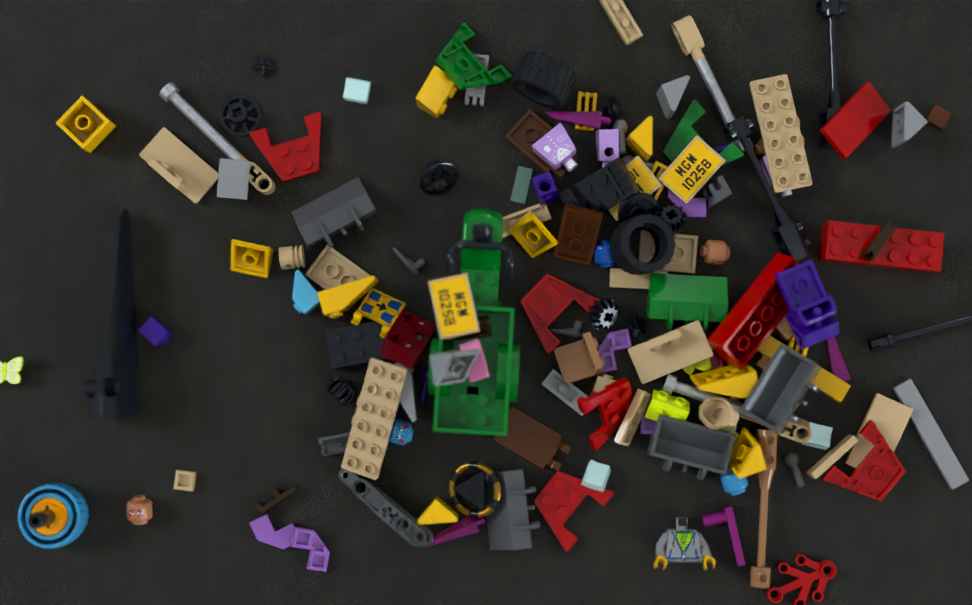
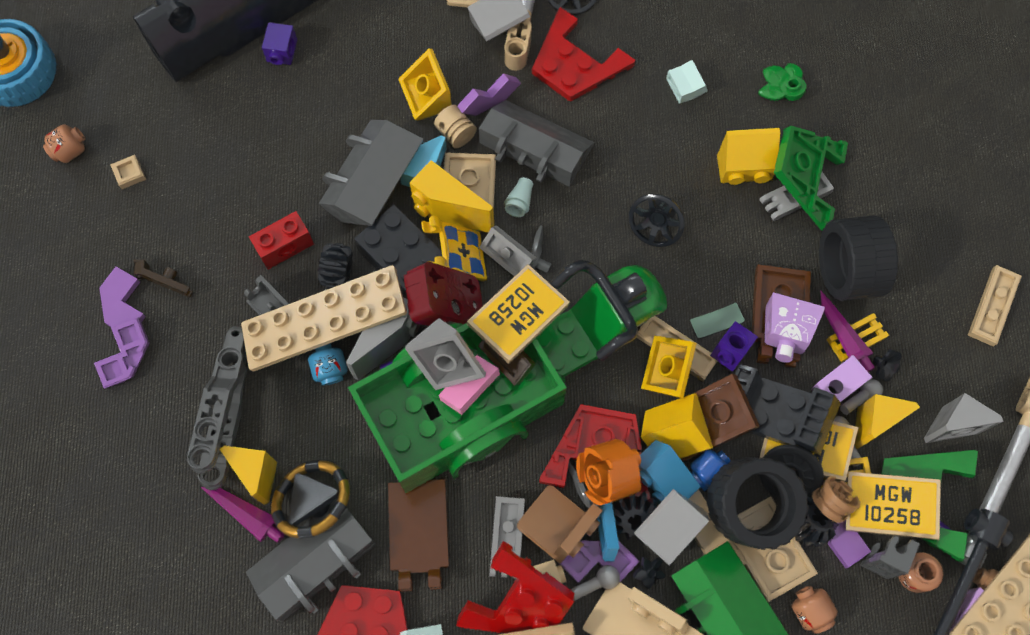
camera: 55 degrees right, 15 degrees down
(285, 228) = (480, 101): none -> medium lavender tile
(292, 331) = (369, 172): none -> dark grey piece
(299, 412) = (281, 240): none -> red brick
(367, 250) = (519, 199): none -> light aqua cone
(394, 30) = (783, 83): none -> green plate
(398, 280) = (506, 251): none -> light grey plate
(570, 257) = (678, 425): none -> yellow slope
(572, 313) = (609, 471): none -> orange brick
(592, 282) = (665, 471): none -> dark azure brick
(600, 334) = (608, 533): none -> dark azure tile
(625, 299) = (672, 526): none -> light grey slope
(625, 352) = (607, 578): none -> light grey bar
(668, 199) = (835, 499): none -> medium nougat wheel
(737, 176) = (923, 575): none -> nougat head

